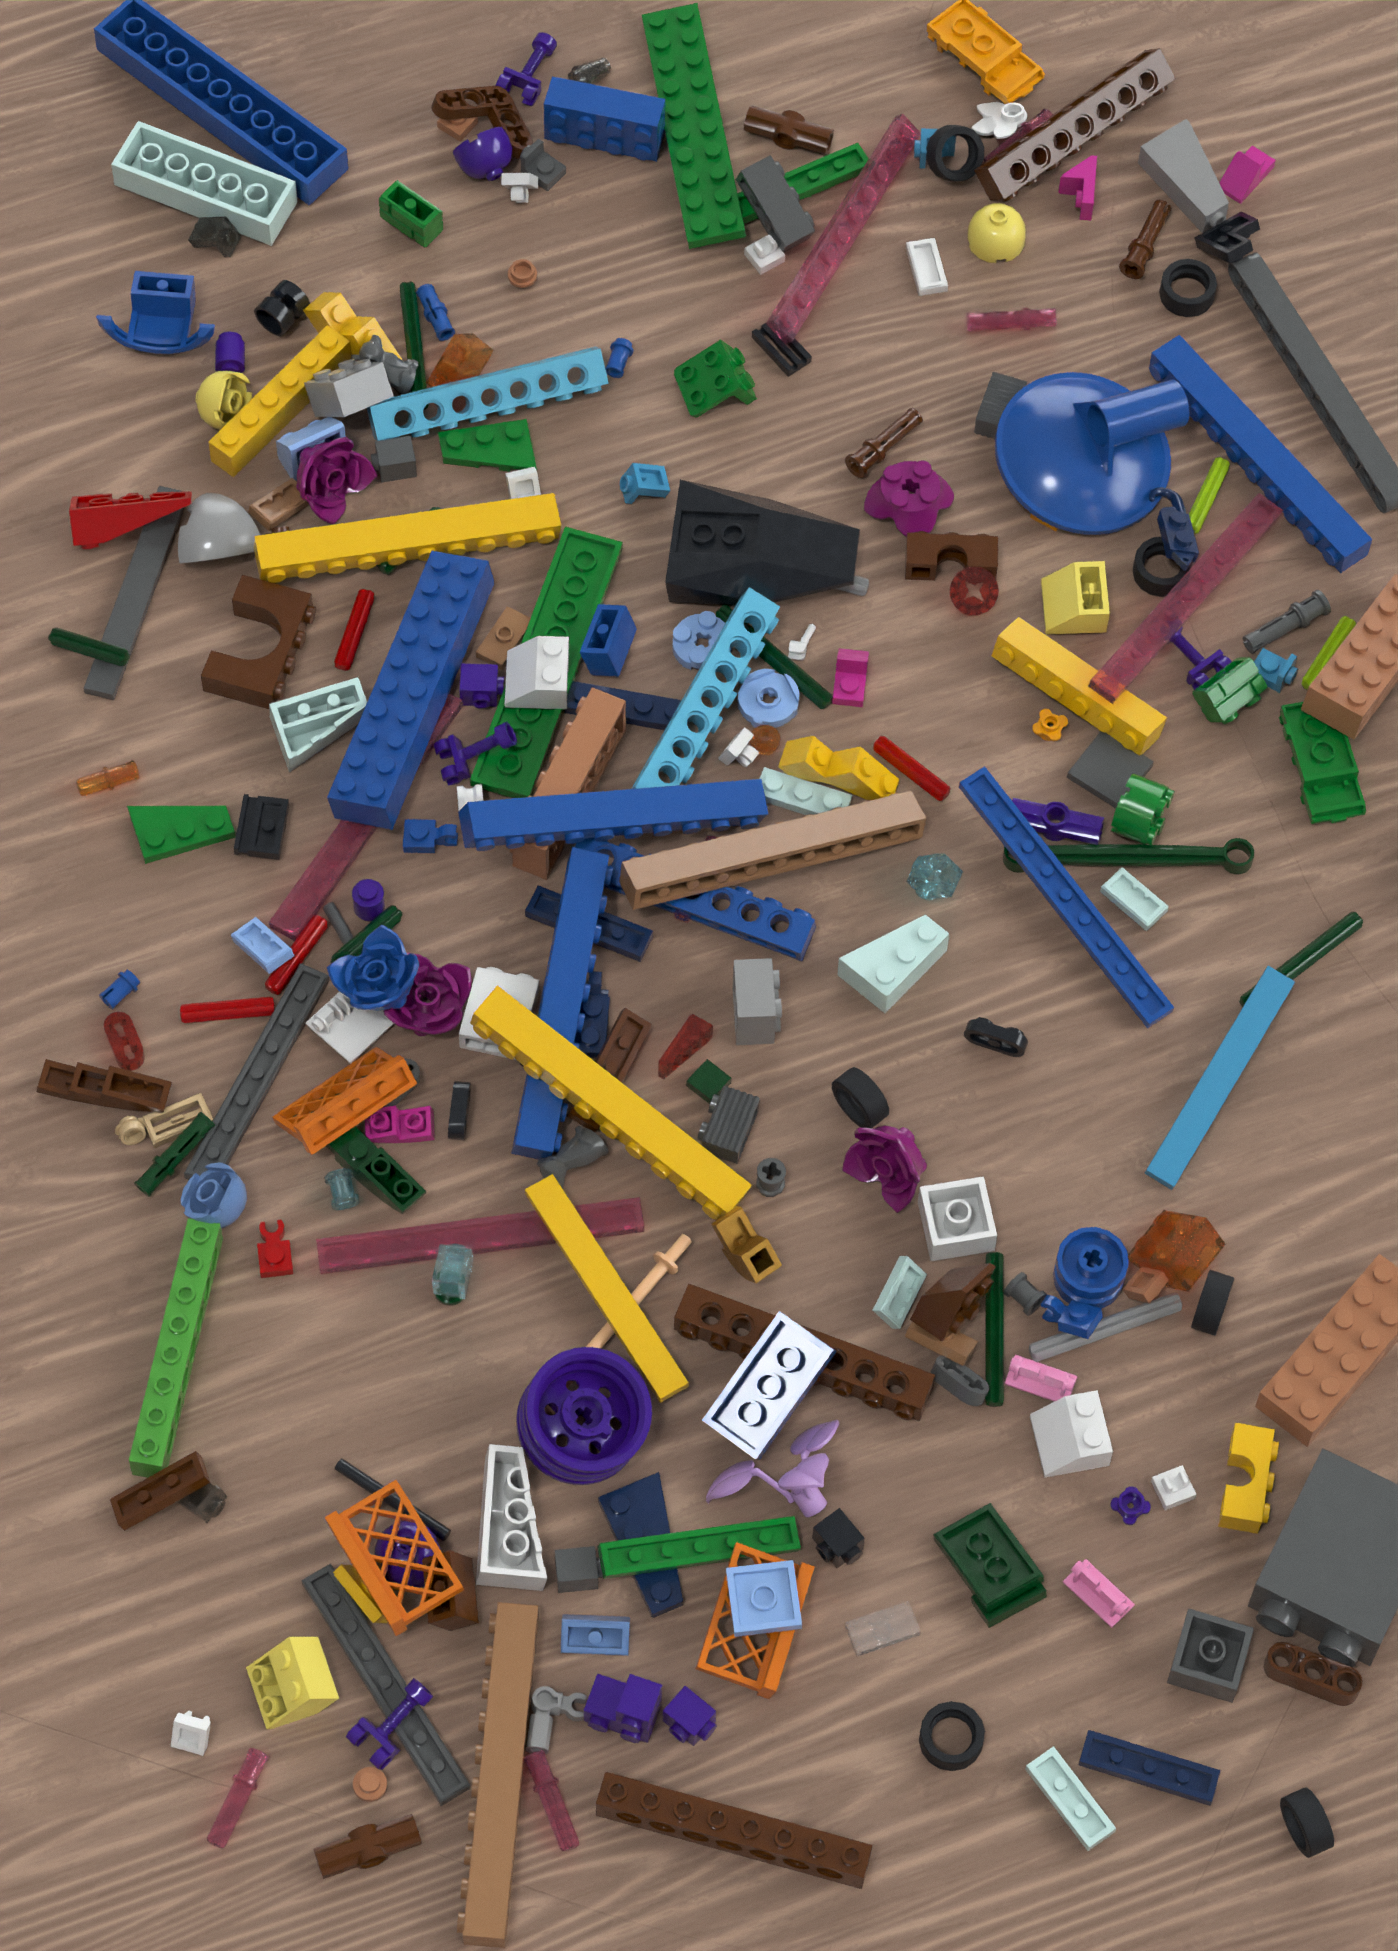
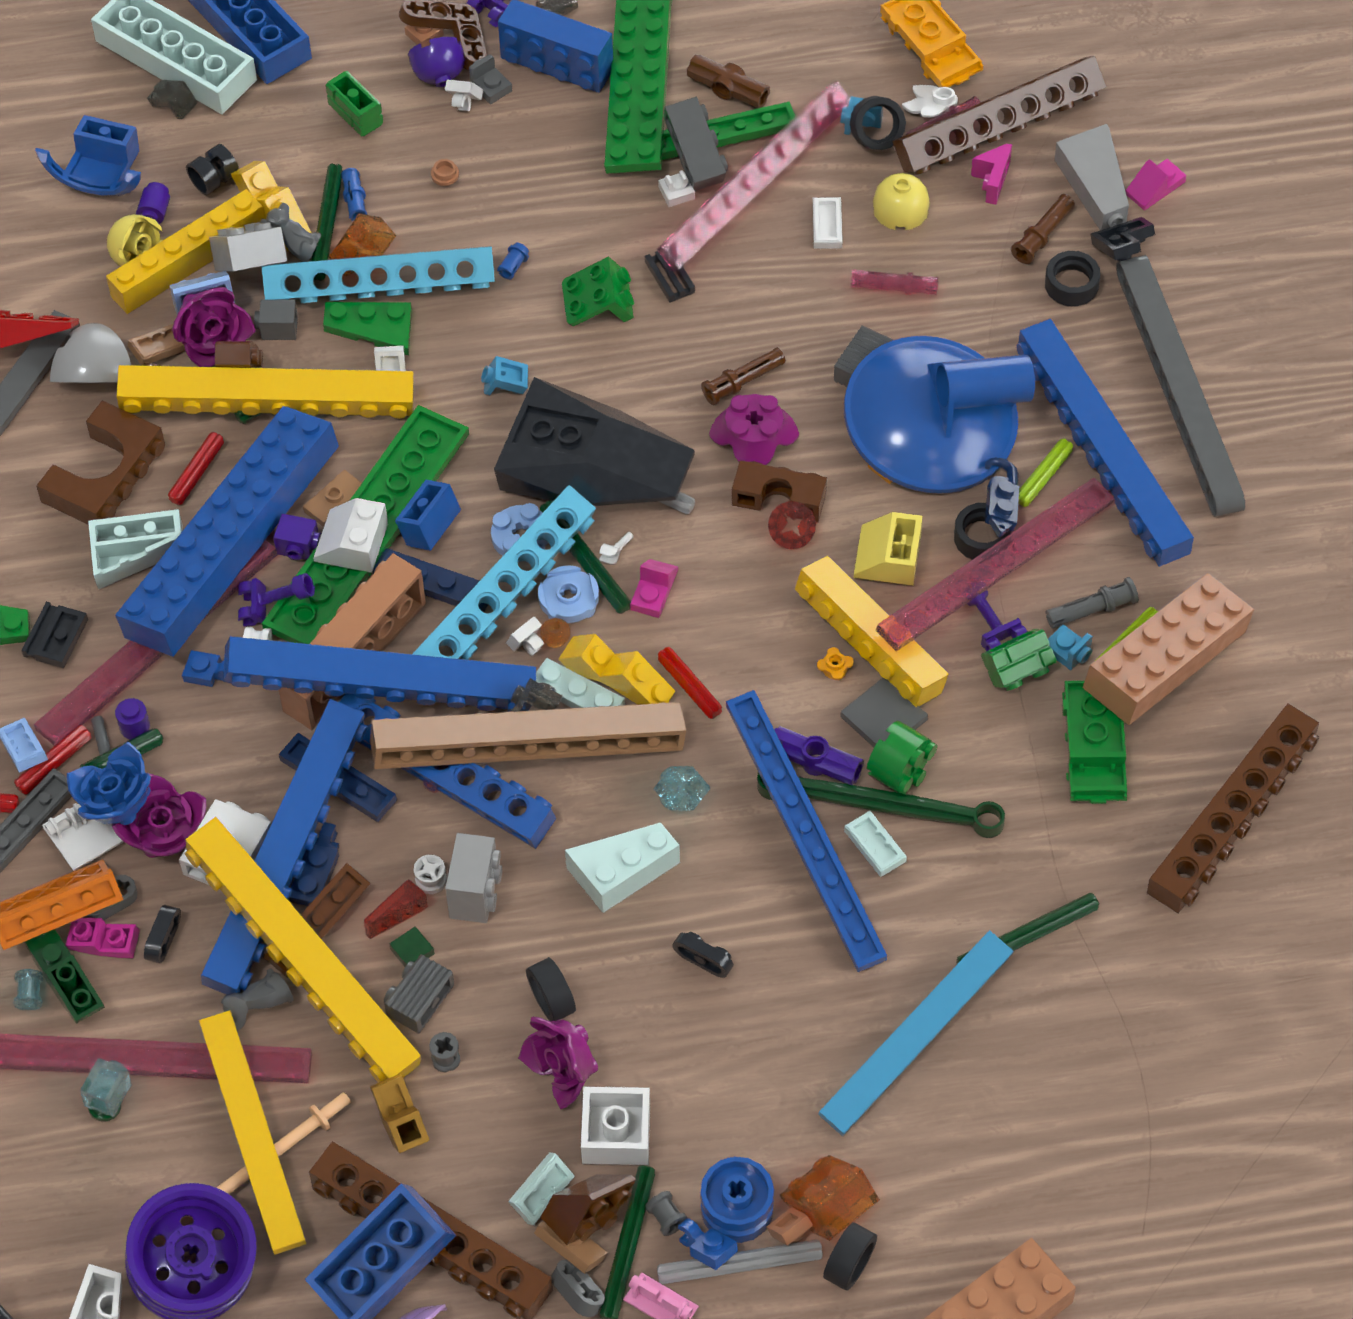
camera: 15 degrees right, 5 degrees down
(369, 505) = (238, 354): none -> reddish brown brick
(708, 997) = (430, 866): none -> white wheel
(772, 807) = (536, 694): none -> clear smoke bracket

